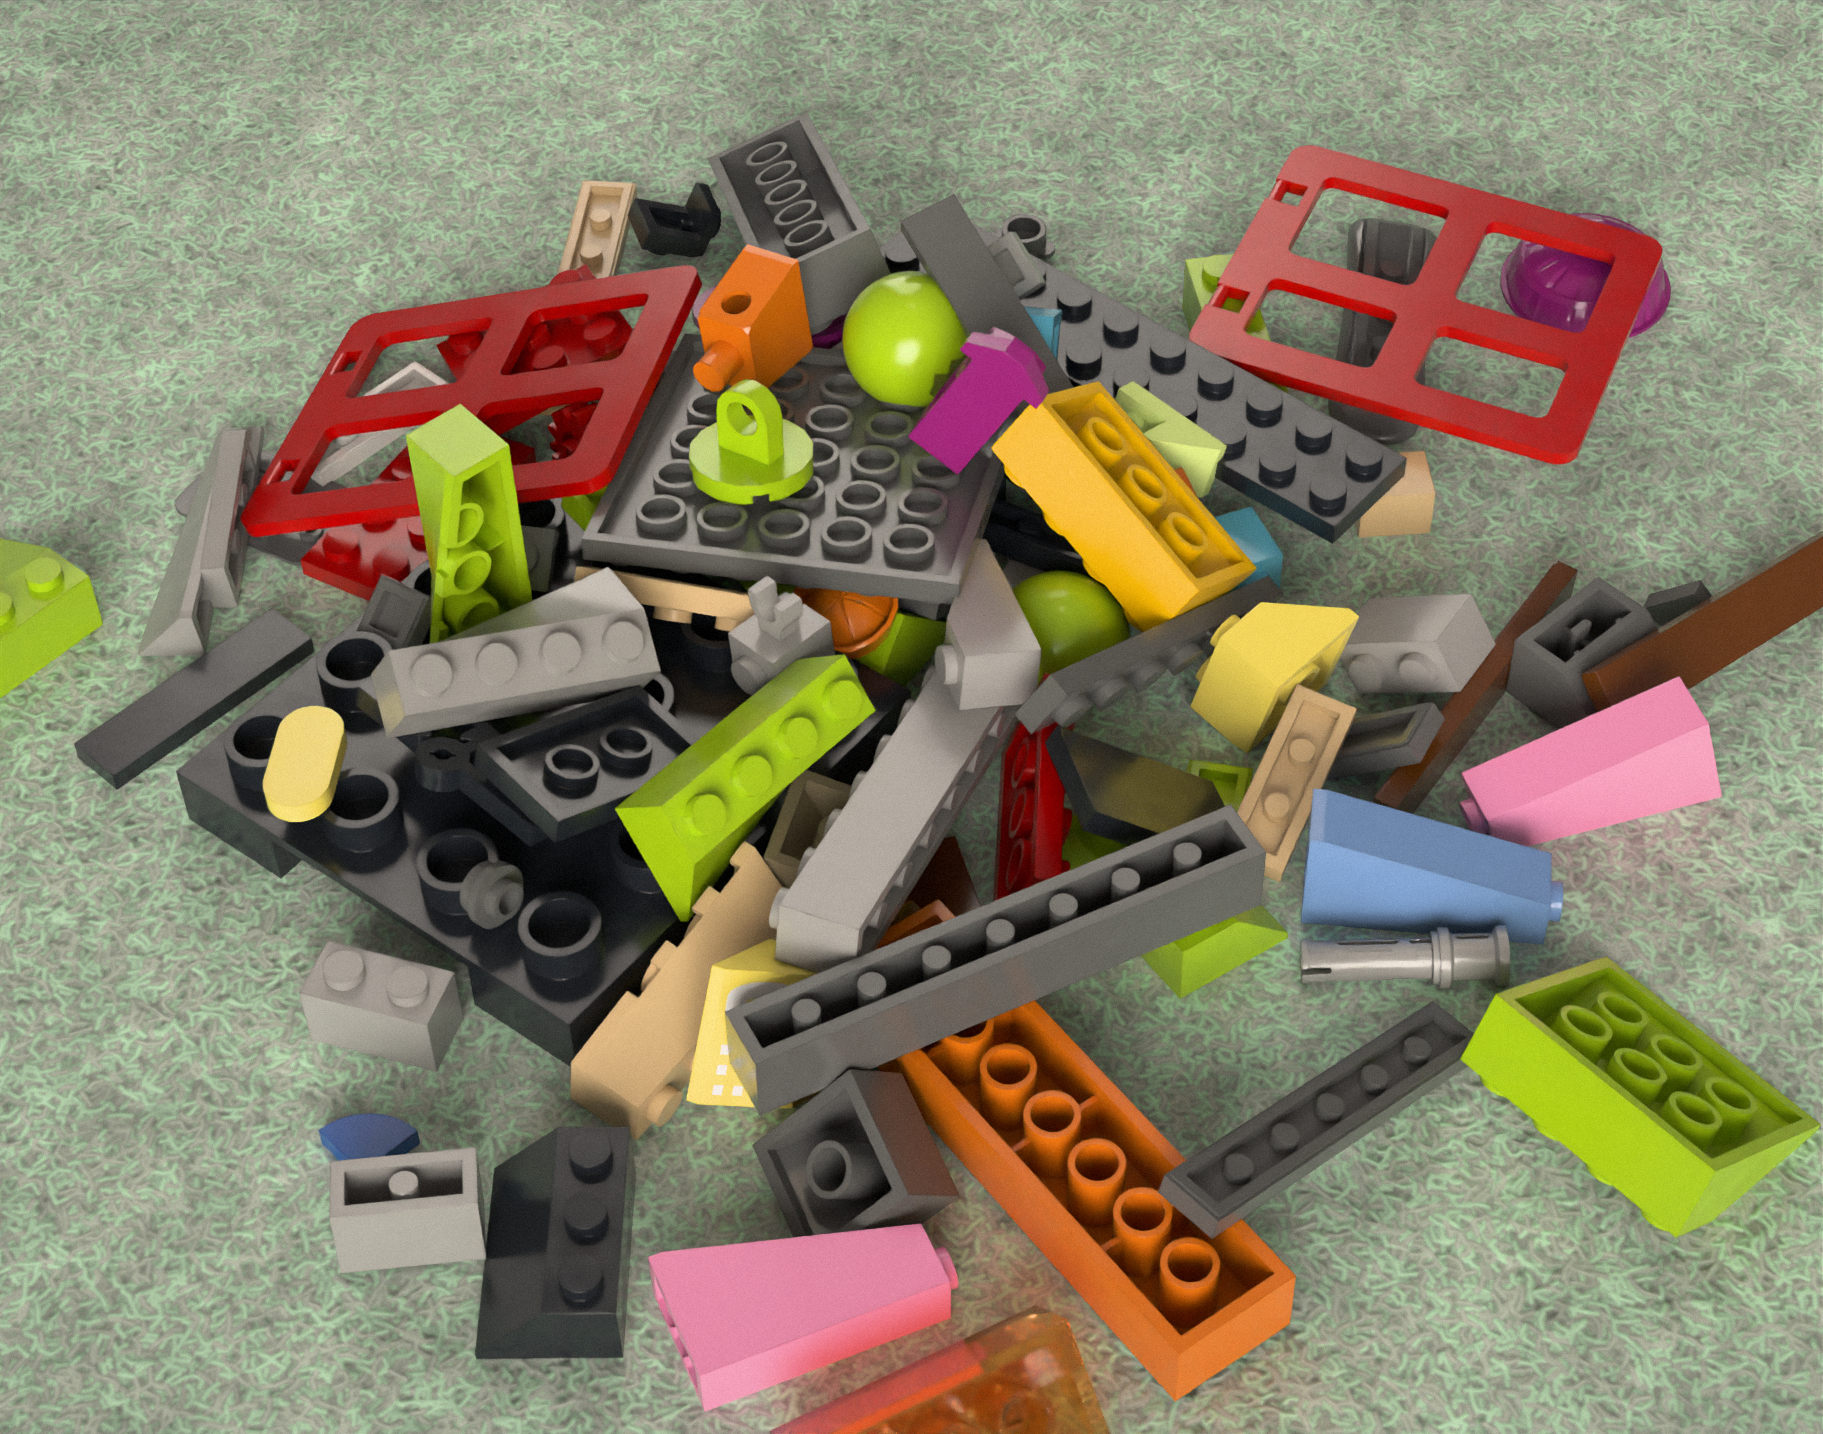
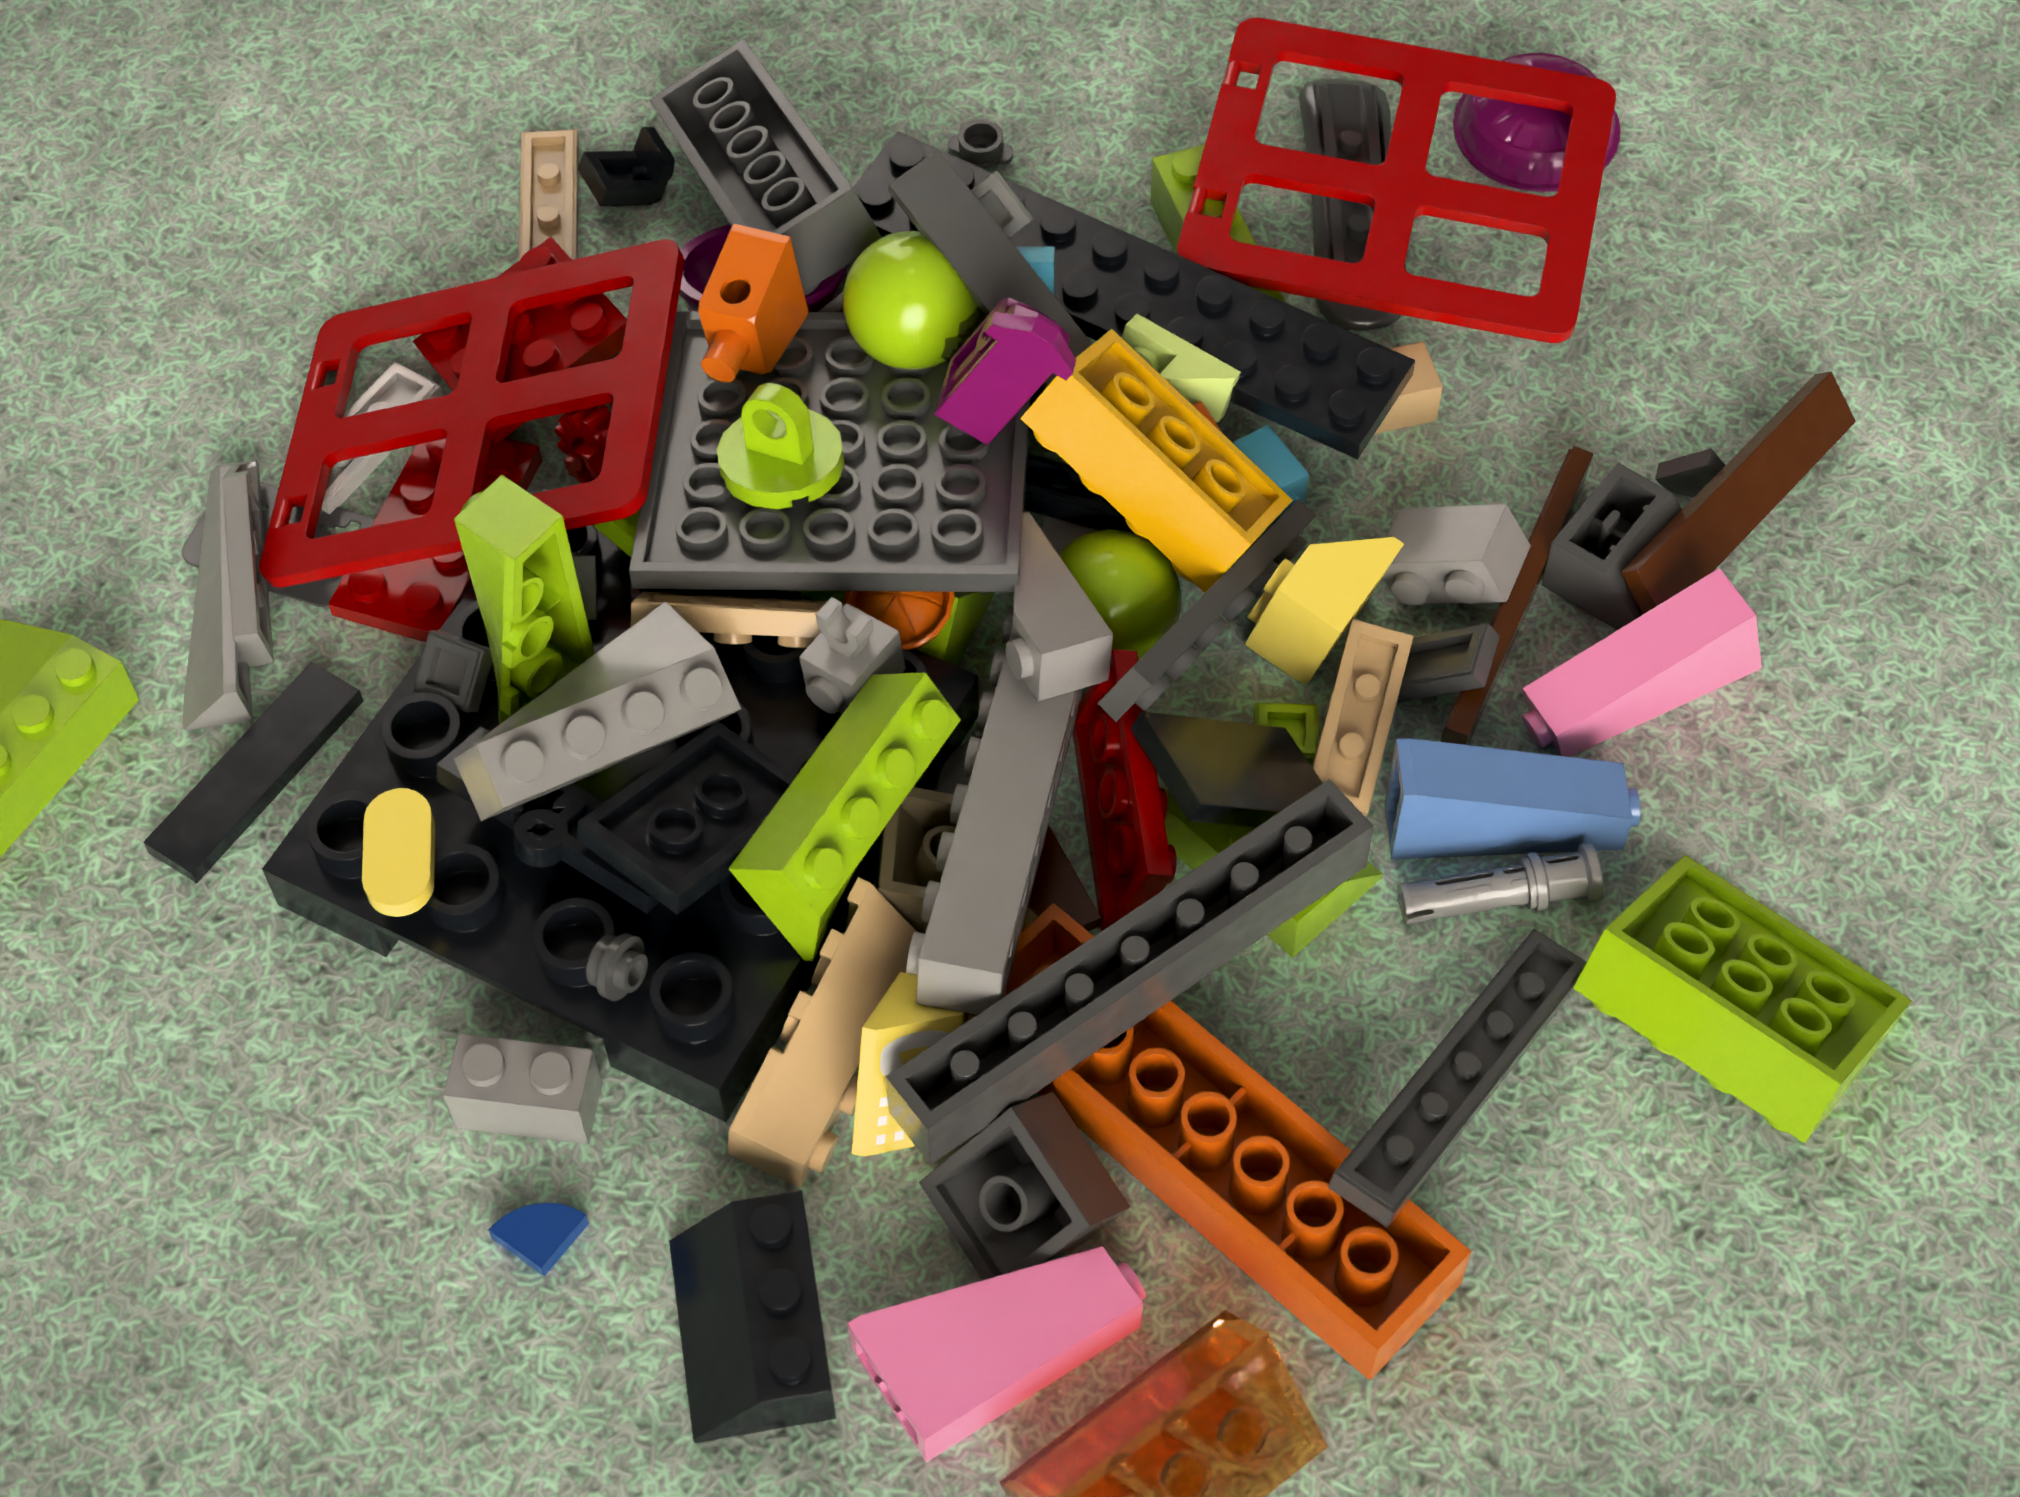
camera: 10 degrees left, 10 degrees up
(407, 1210) = (599, 1307): light grey brick -> none

